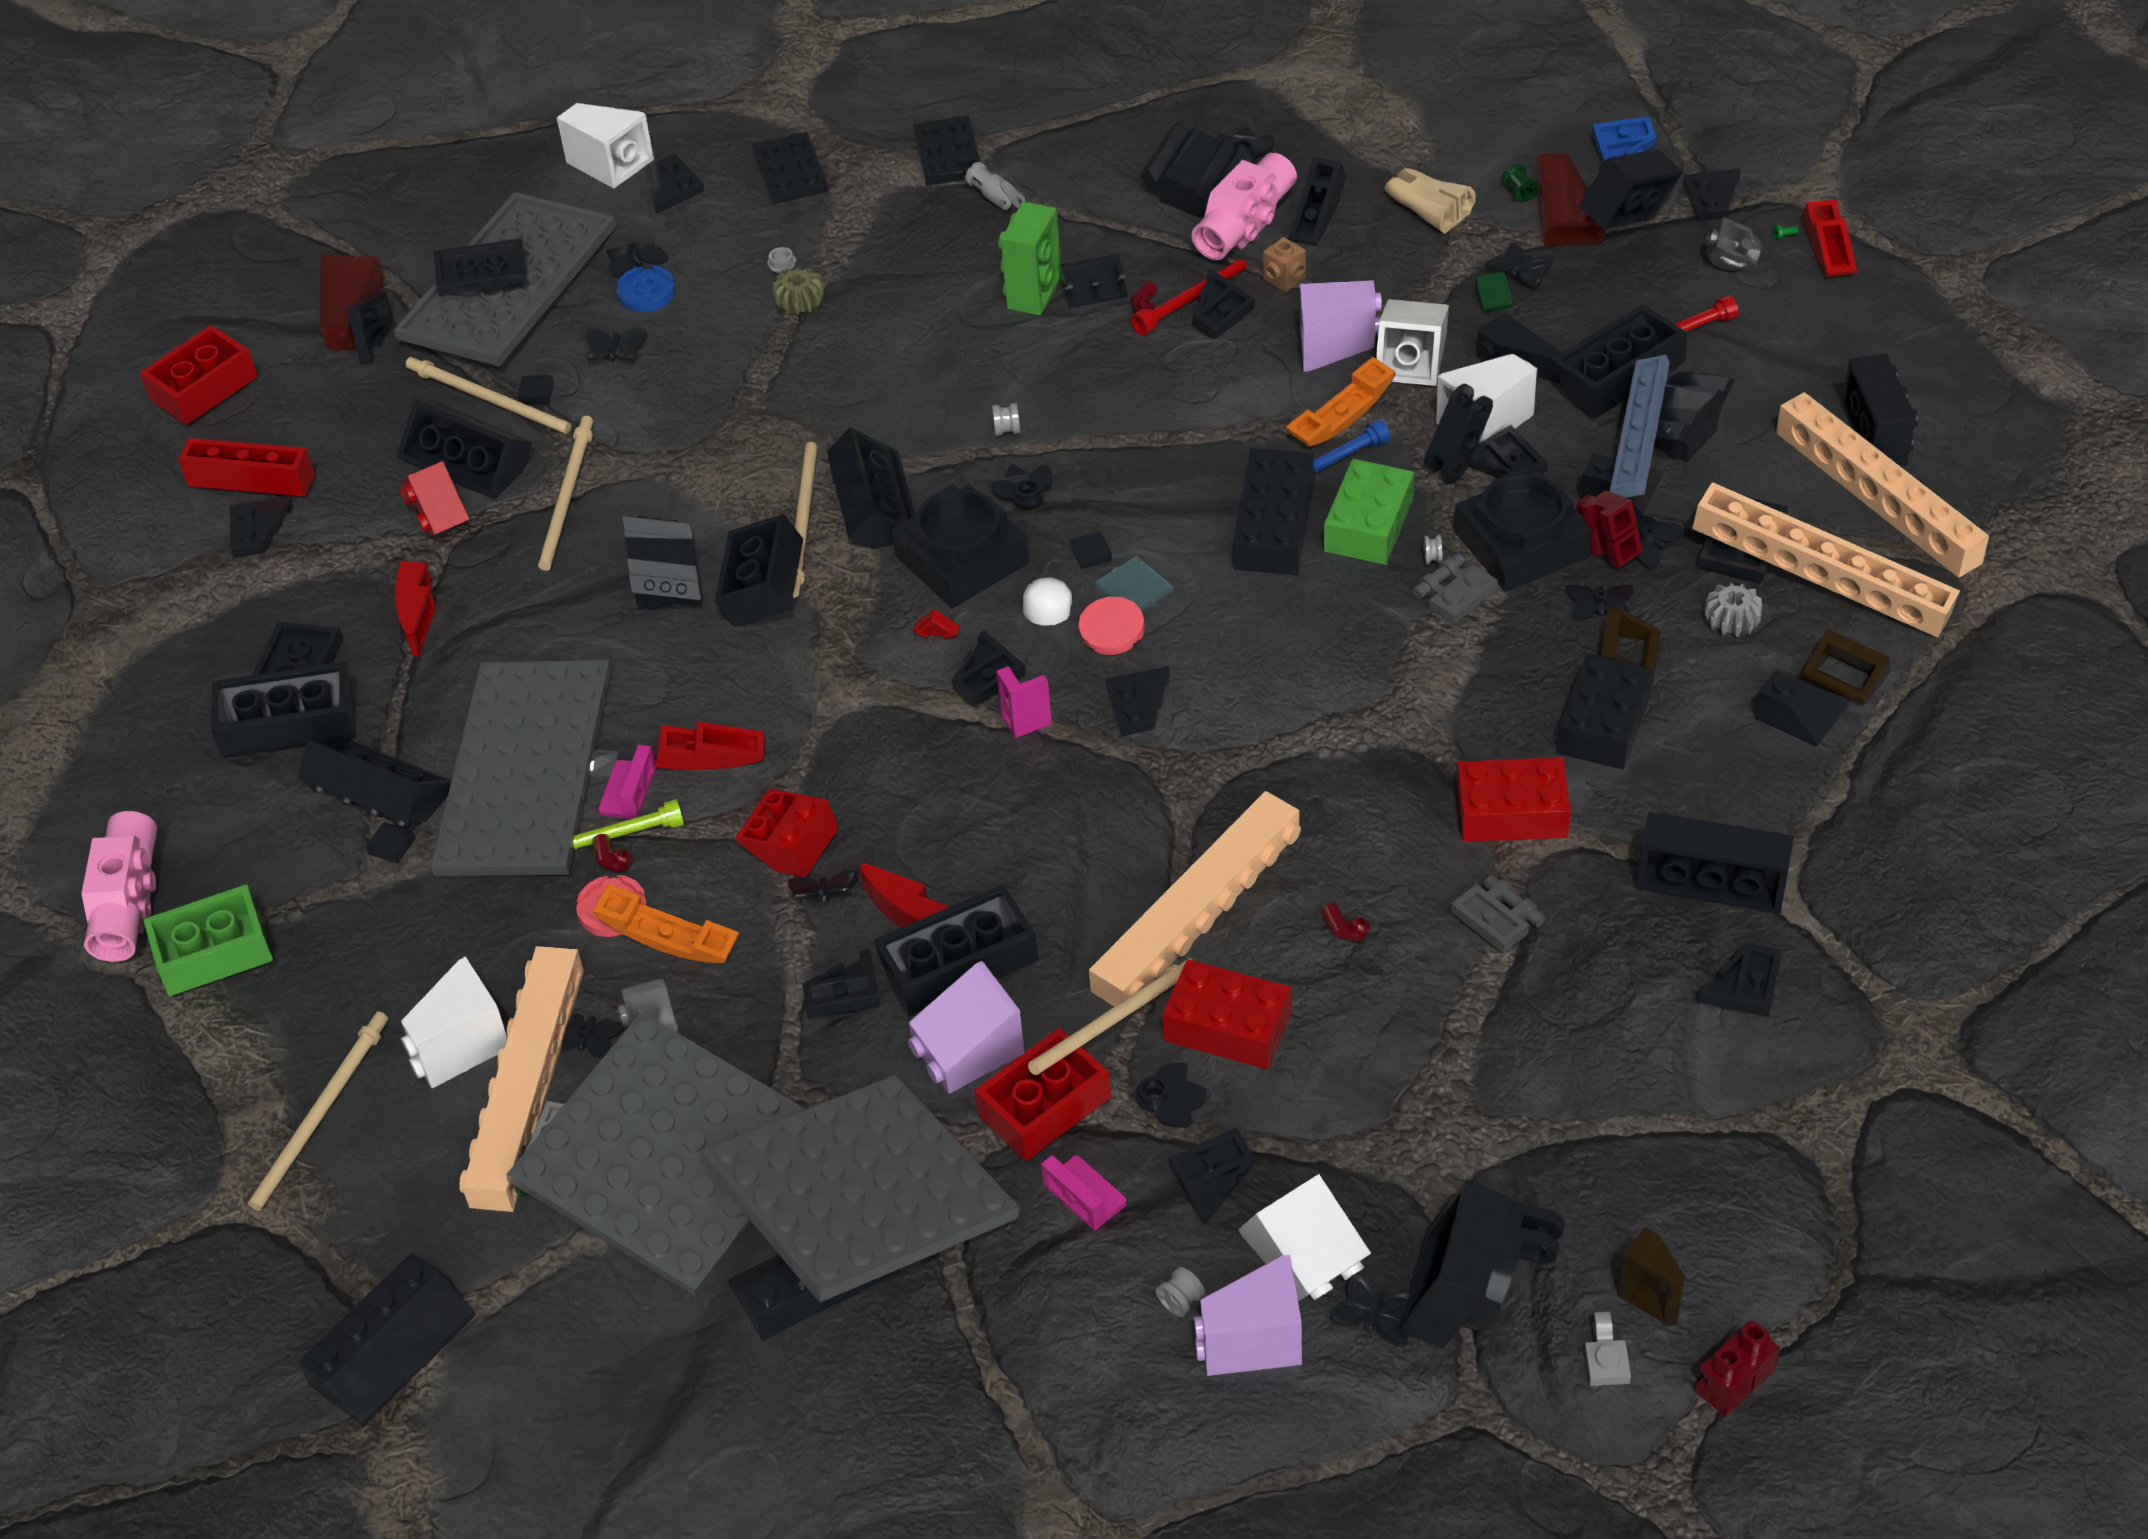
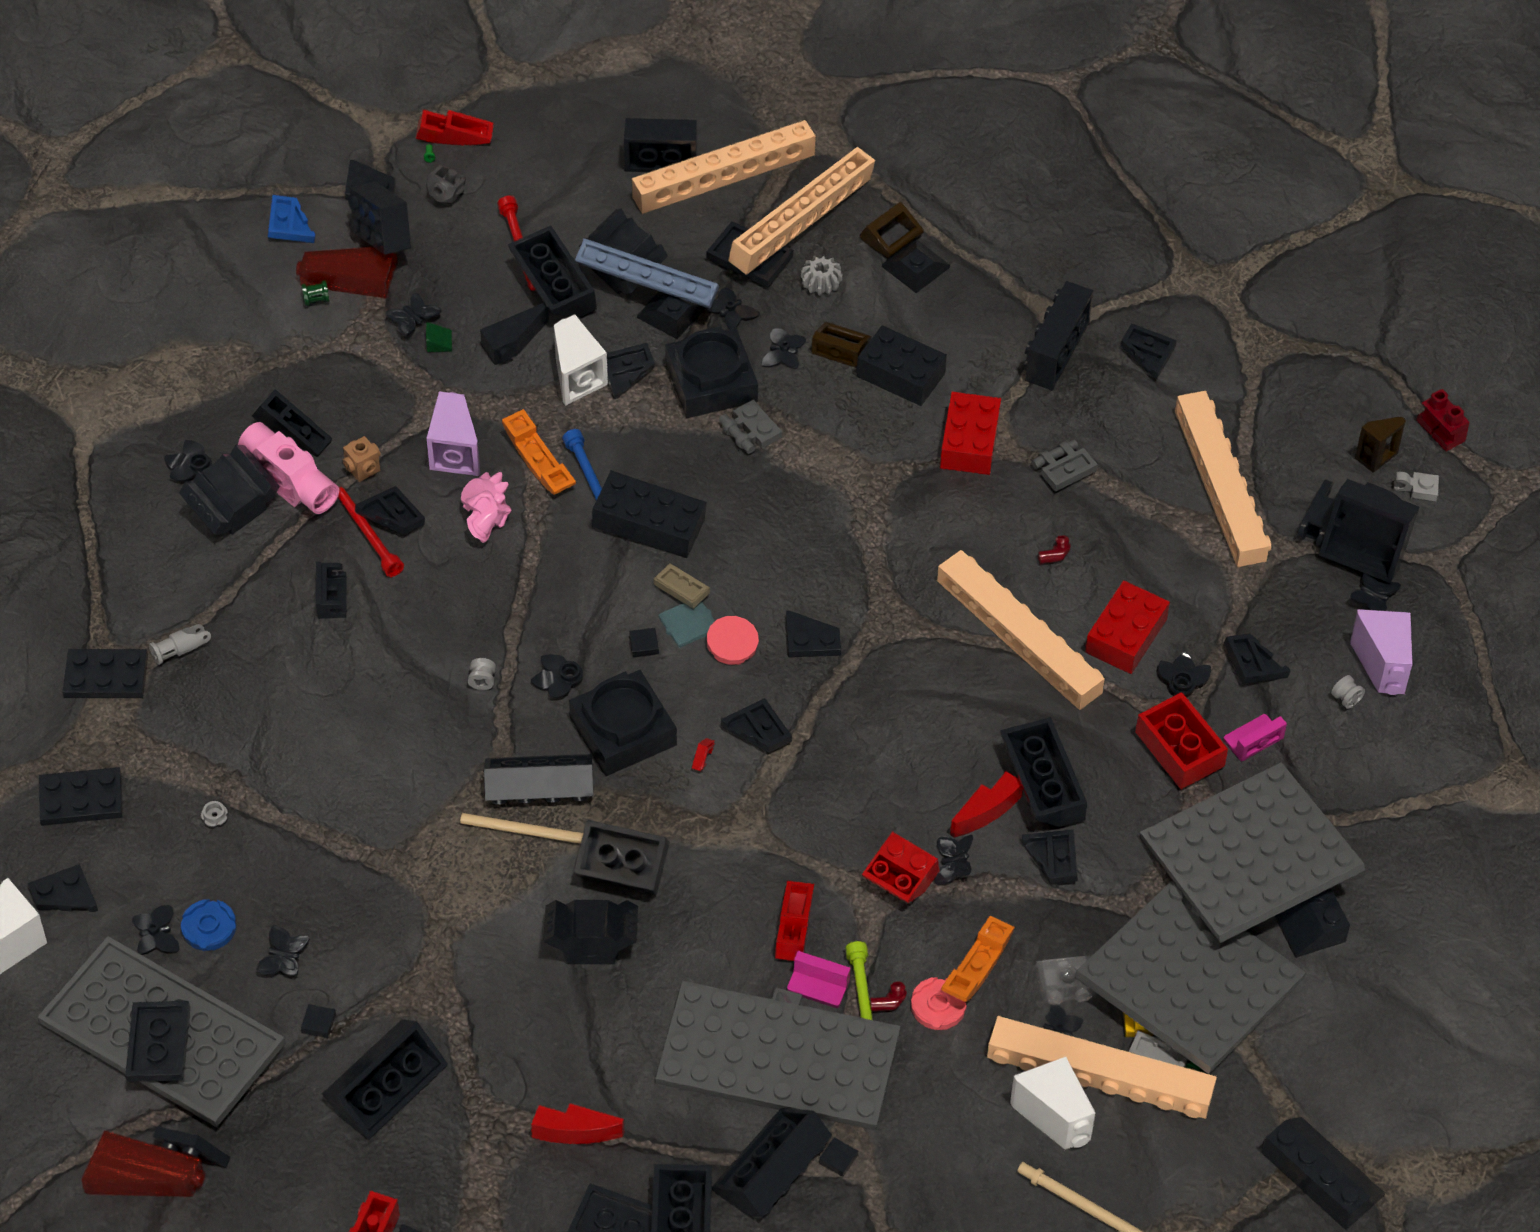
camera: 85 degrees left, 5 degrees up
(427, 369) = (260, 1108): tan bar -> none
(435, 498) = (452, 1094): brick -> none
(581, 435) = (392, 987): tan bar -> none
(798, 291) = (265, 803): olive gear -> none
(967, 1030) = (1117, 776): lavender slope -> none
(1023, 705) = (812, 702): dark pink panel -> none
(1030, 258) = (314, 616): bright green brick -> none
(1047, 601) = (694, 677): white hair -> none
(1106, 1020) = (1130, 685): tan bar -> none
(1141, 297) = (370, 564): dark red arm -> none
(1180, 565) = (681, 585): none -> dark tan plate
(1238, 370) = (487, 501): none -> bright pink head
(1314, 1234) = (1316, 616): white slope -> none
(1369, 511) = (663, 457): bright green brick -> none
(1413, 340) = (488, 391): white slope -> none
(1432, 549) = (712, 430): light grey bush -> none
(1433, 200) = (313, 350): tan piece -> none
(1458, 433) = (614, 381): black piece -> none
(1529, 1094) = (1222, 479): none -> light nougat brick
(1612, 526) = (732, 313): dark red hips -> none

